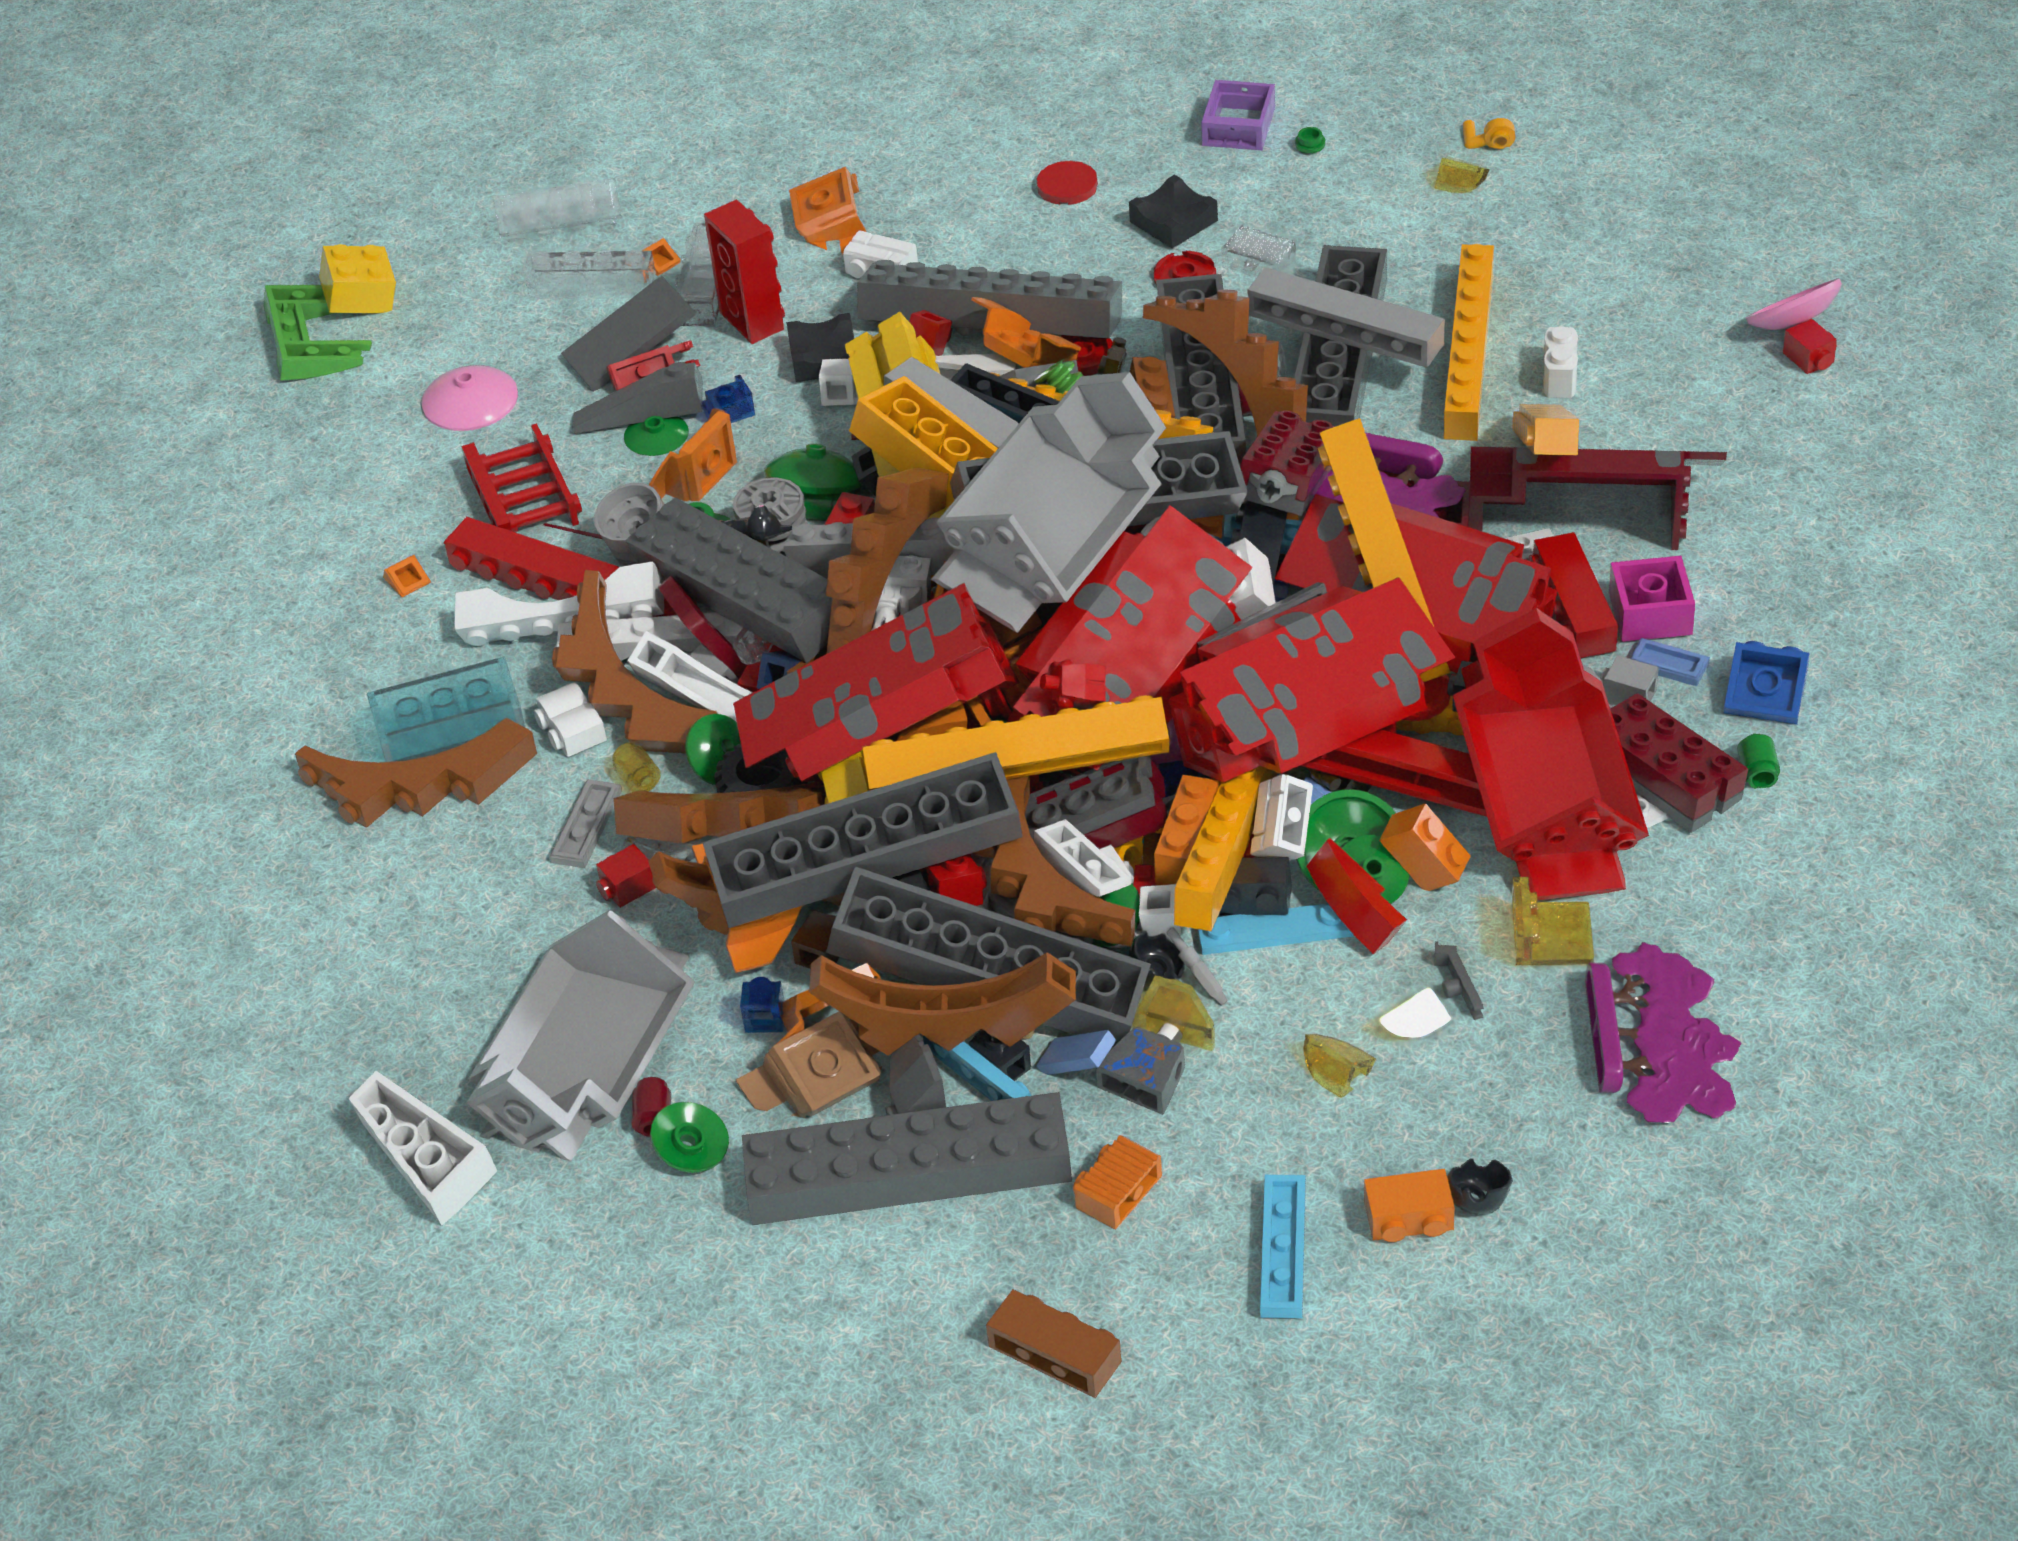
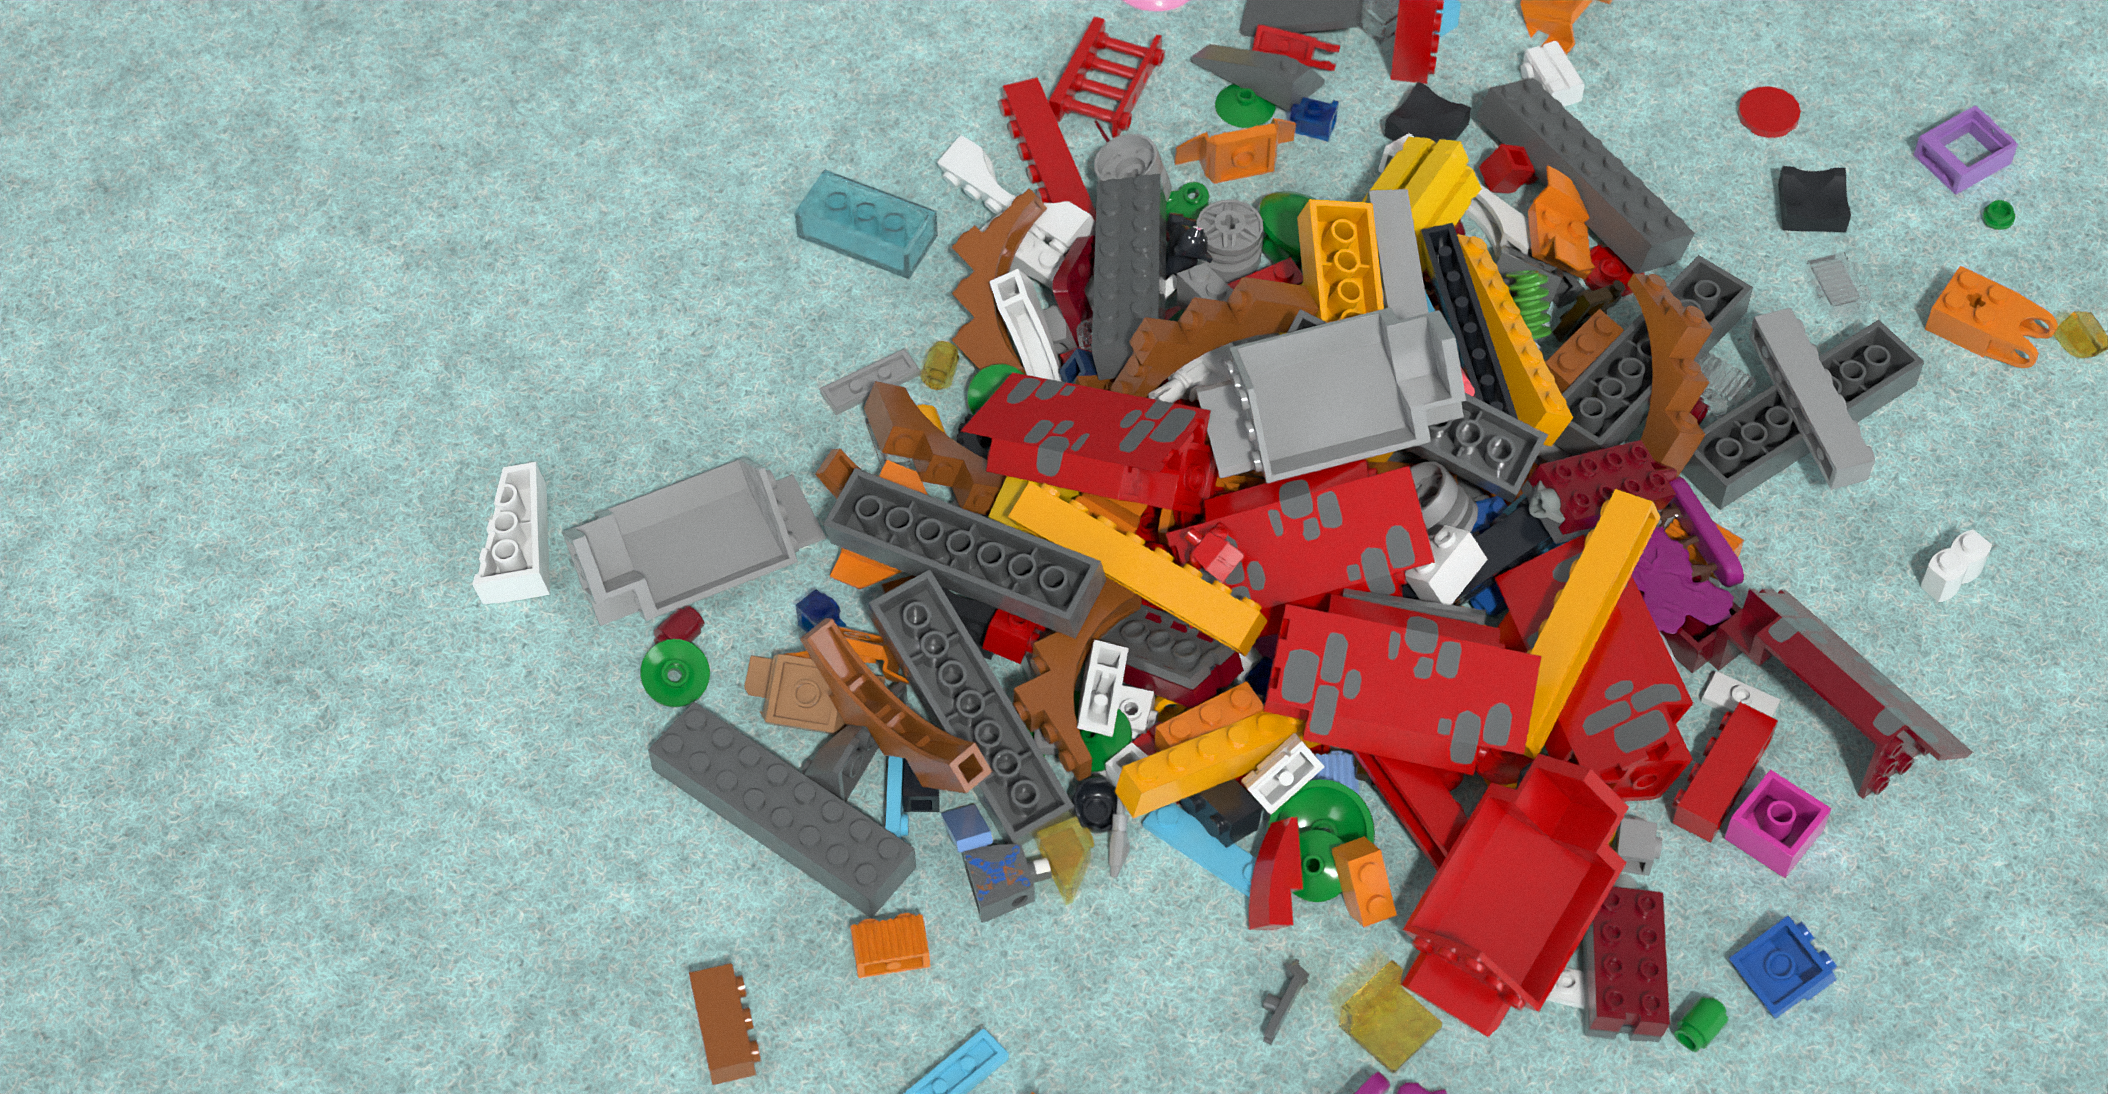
camera: 40 degrees right, 10 degrees up
(406, 576) = (963, 93): orange slope -> none
(419, 784) = (836, 279): dark orange arch -> none
(570, 720) = (934, 299): white brick -> none
(625, 876) = (848, 436): red brick -> none
(1177, 266) = (1765, 269): red tile -> none
(1335, 1062) = (1129, 988): clear yellow brick -> none
(1388, 203) = (1989, 319): none -> orange brick
(1416, 1015) = (1218, 1001): brick -> none
(1469, 343) = (1906, 491): light orange brick -> none
(1547, 429) = (1825, 621): light orange brick -> none
(1628, 678) = (1681, 878): light grey brick -> none
(1672, 661) = (1739, 885): medium blue tile -> none

